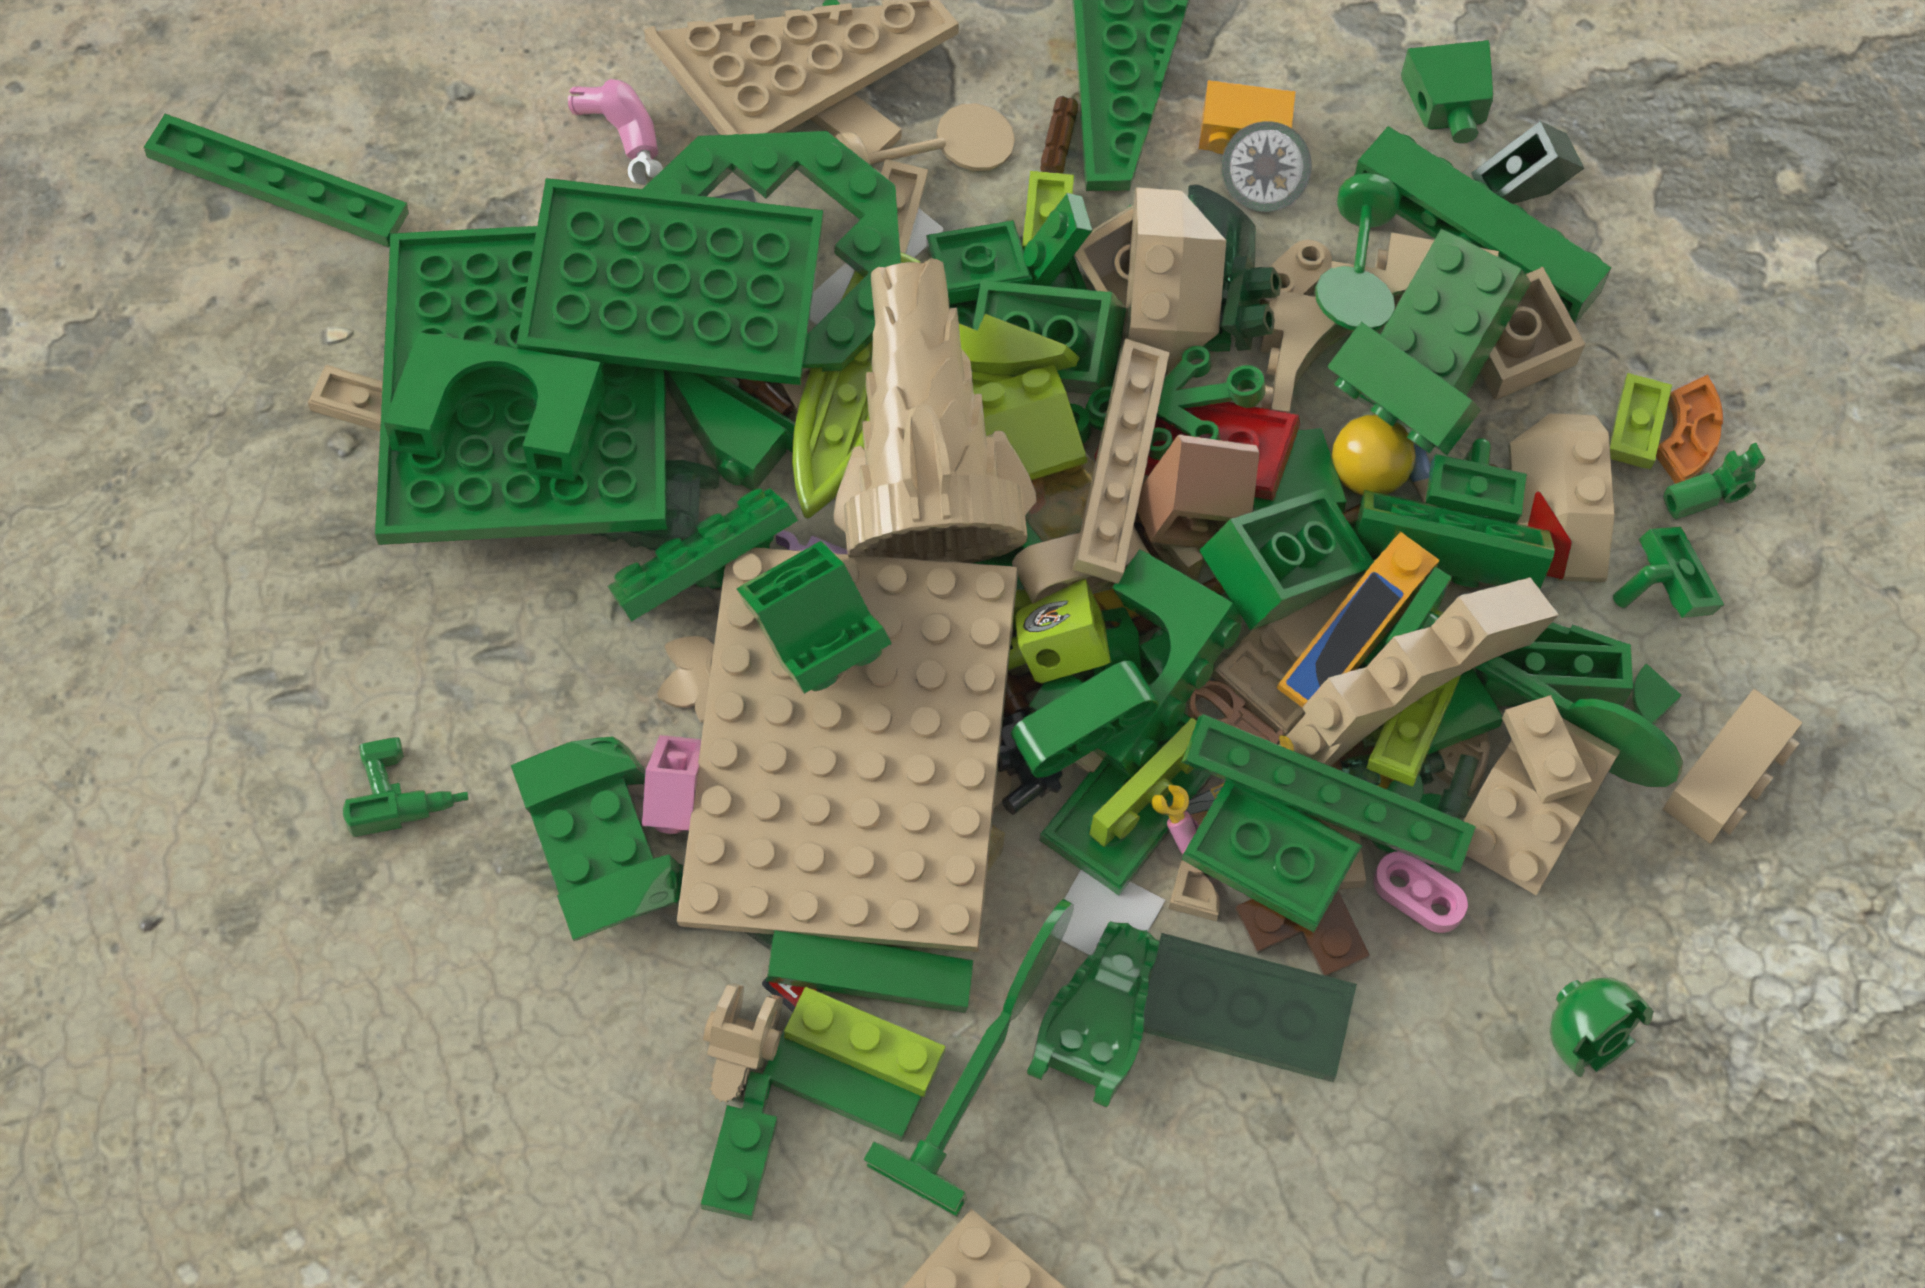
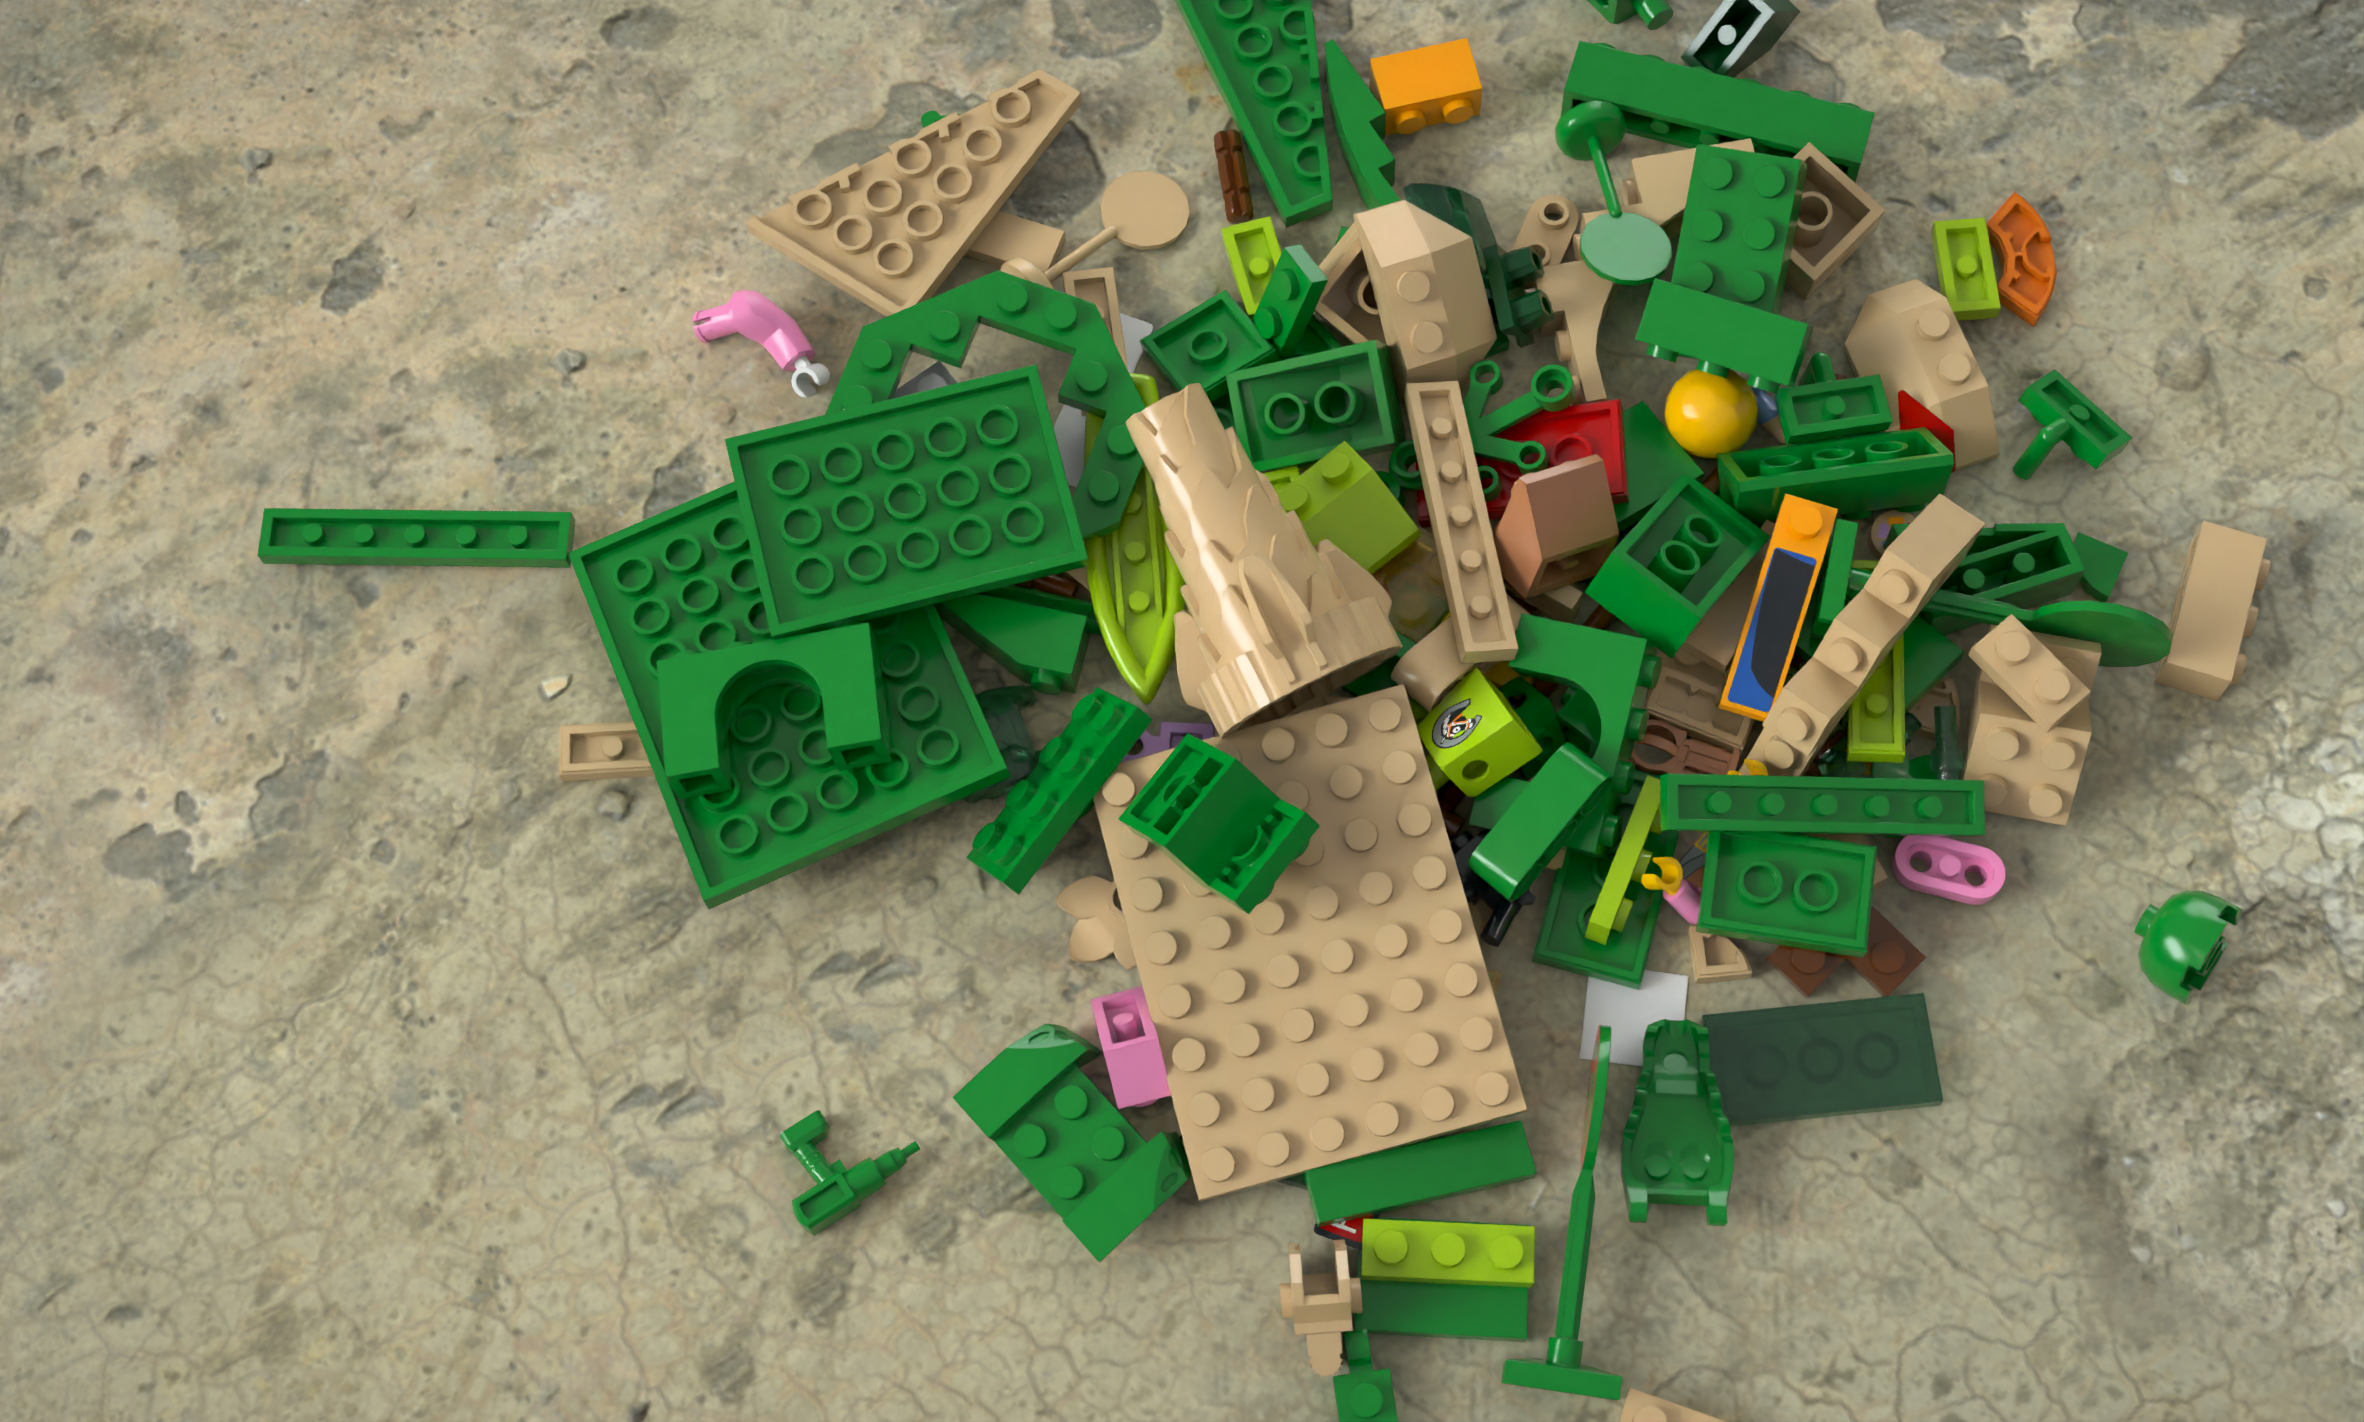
camera: 10 degrees left, 5 degrees up
(1011, 349) = (1293, 440): lime slope -> none
(1179, 130) = (1359, 130): none -> green slope
(1266, 166) = (1469, 133): clear piece -> none
(1730, 481) = (2081, 305): green bar -> none

